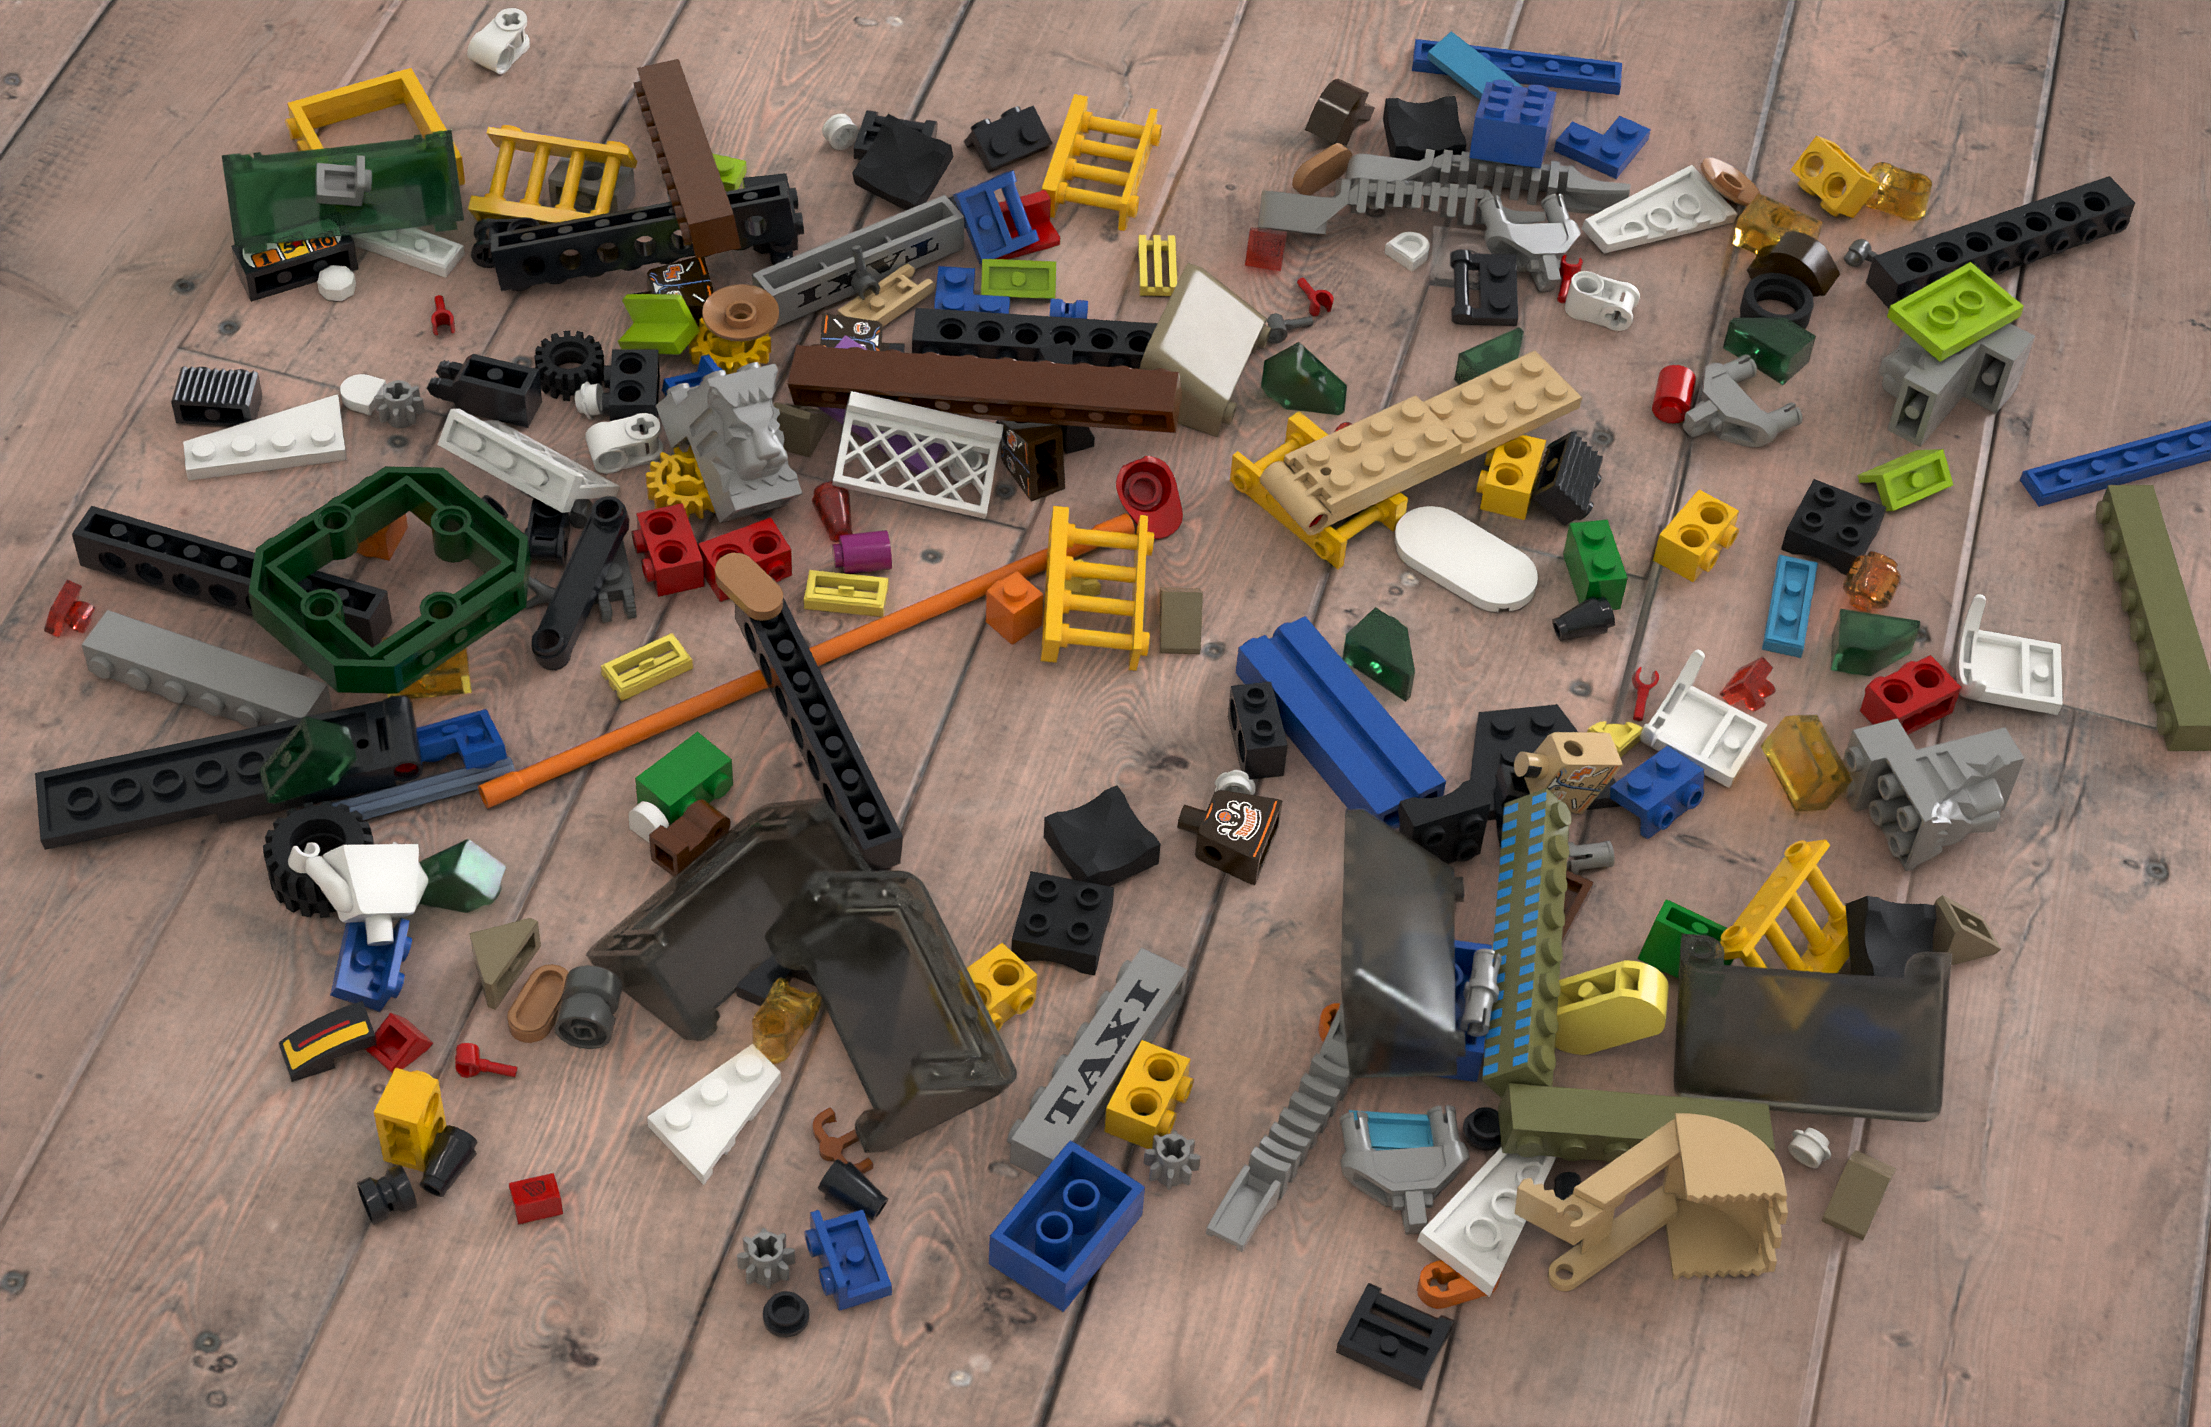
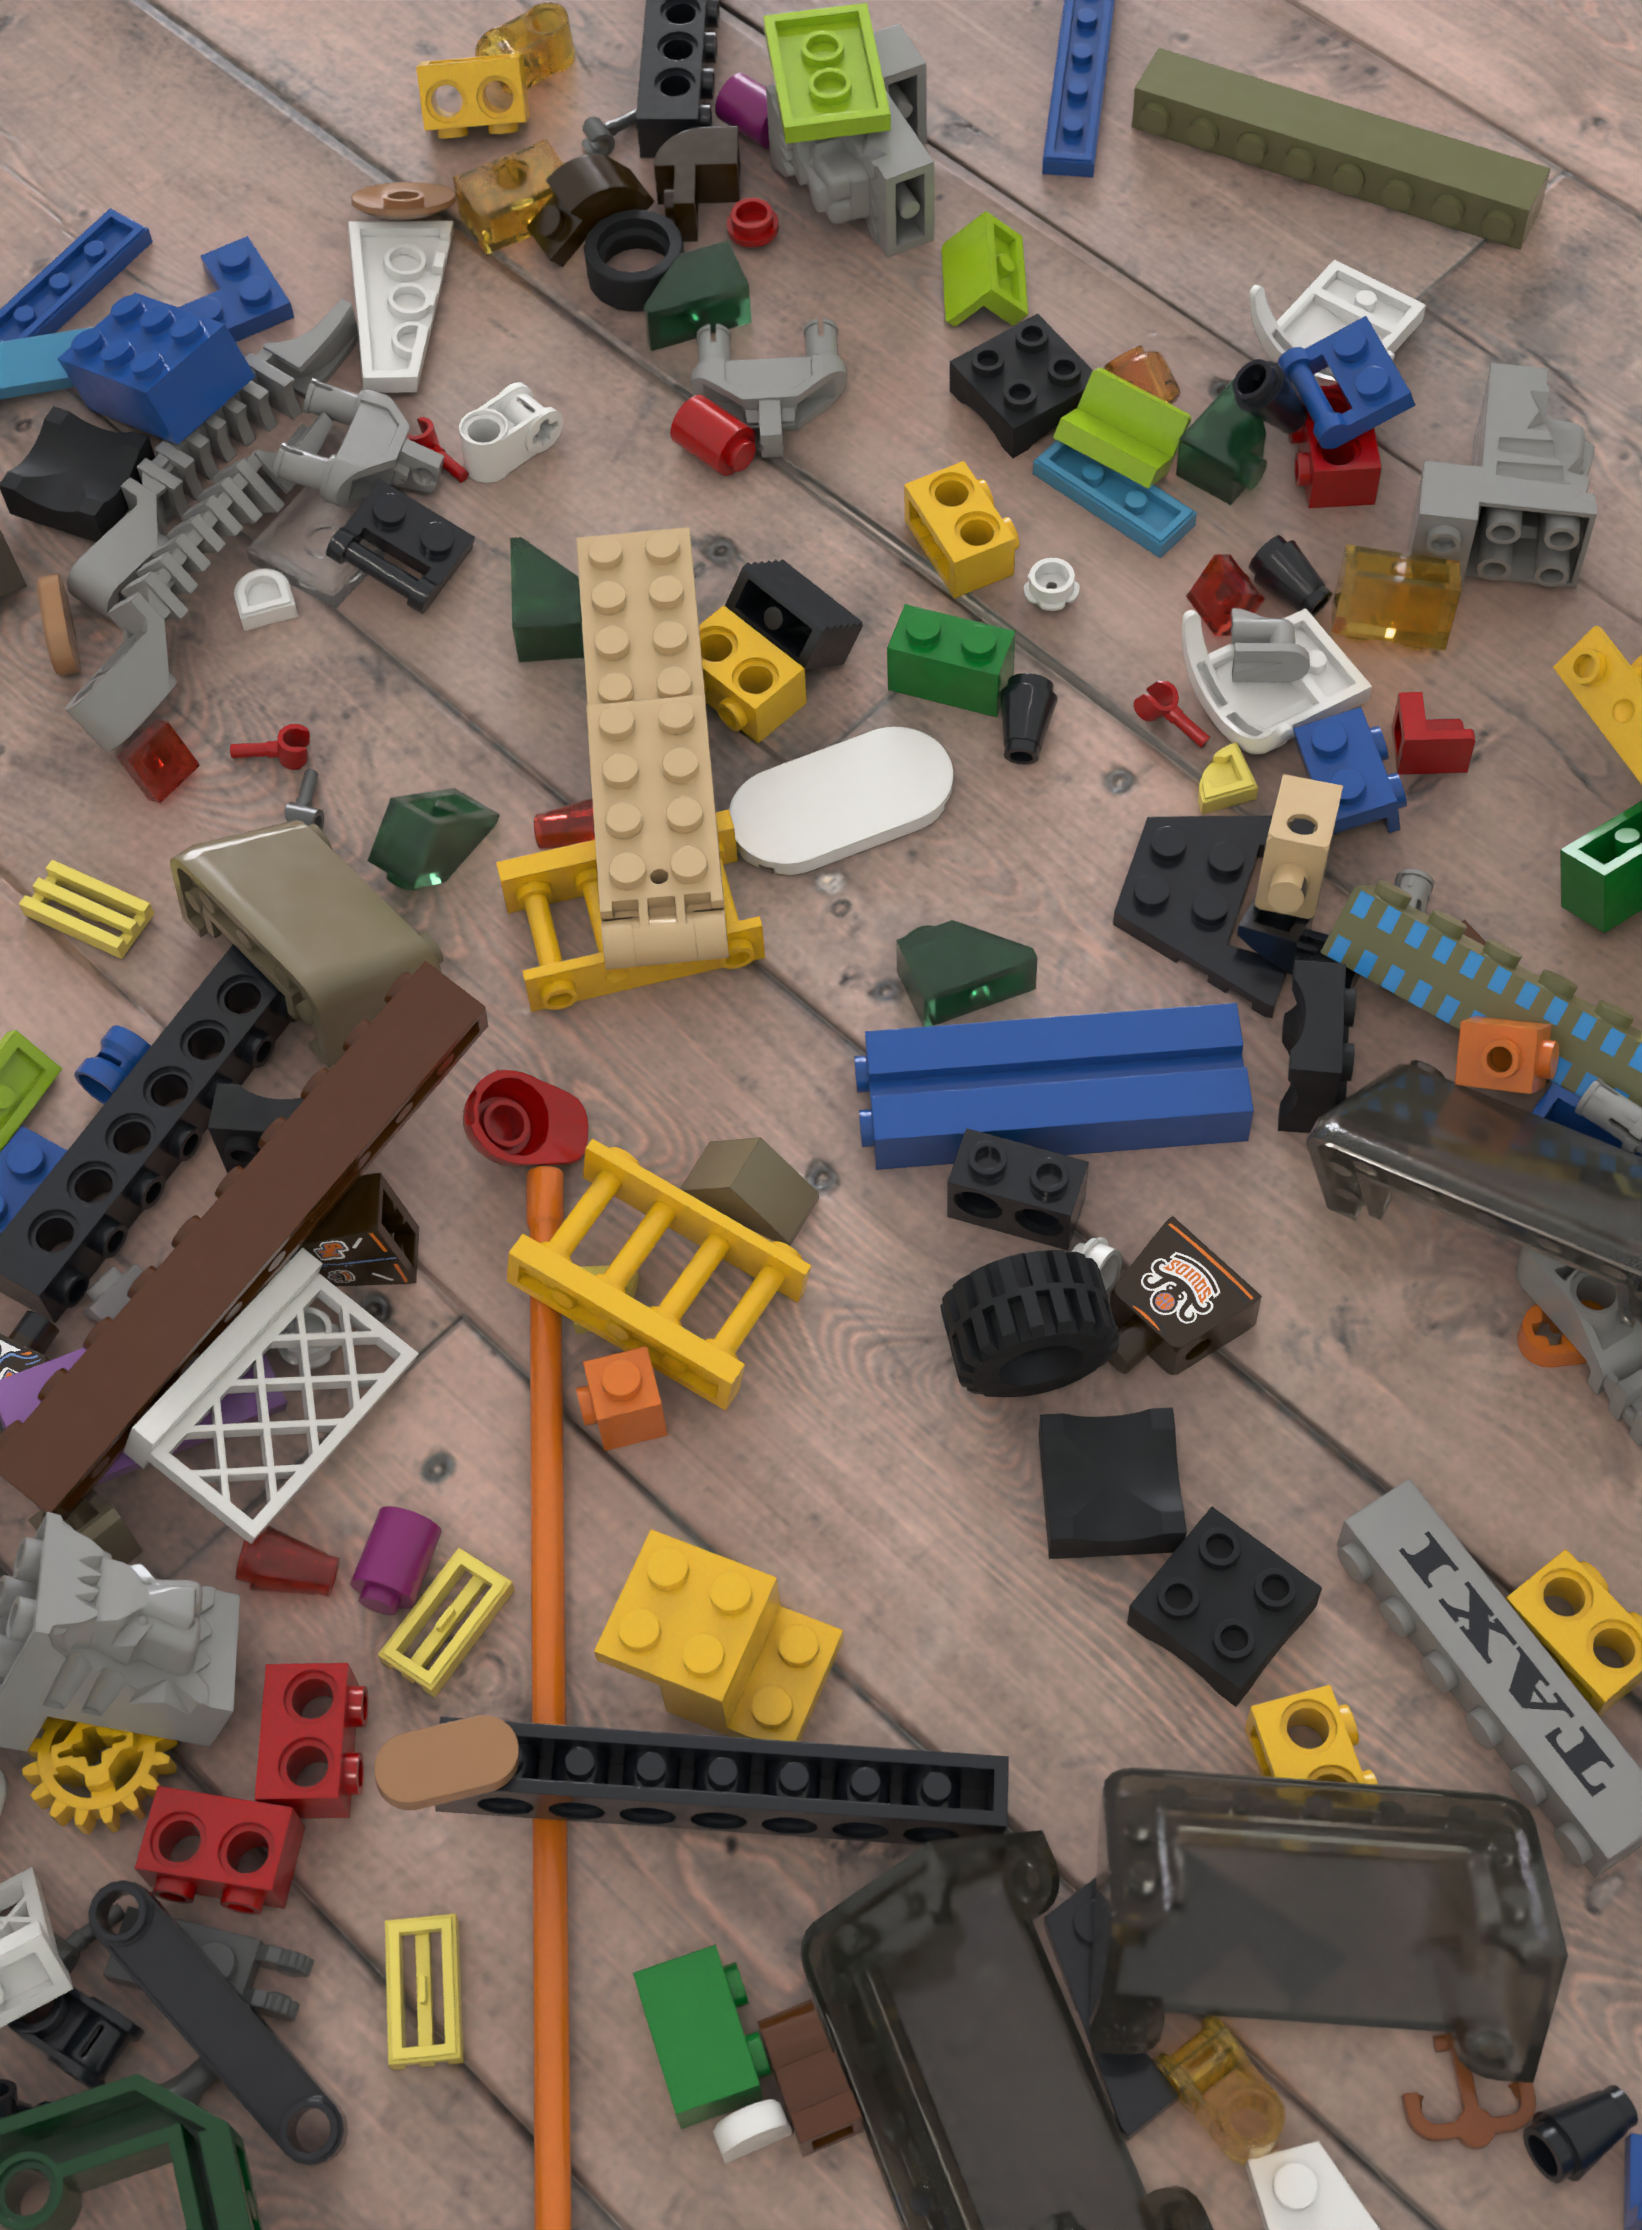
camera: 55 degrees left, 10 degrees up
(897, 700) = (718, 1642): none -> yellow bracket
(1165, 754) = (1029, 1323): none -> black tyre
(1486, 905) = (1505, 1055): none -> orange brick
(1693, 597) = (1051, 574): none -> white plate
(1704, 713) = (1265, 649): none -> light grey piece
(1715, 823) = (1428, 744): none -> red panel
(1790, 700) = (1289, 575): none -> black cone
(1828, 583) = (1124, 428): none -> lime panel
(1853, 350) = (752, 223): none -> red plate
(1861, 303) = (697, 169): none -> dark brown brick
(1898, 634) = (1268, 395): none -> black cone
(1950, 677) = (1362, 374): none -> blue plate

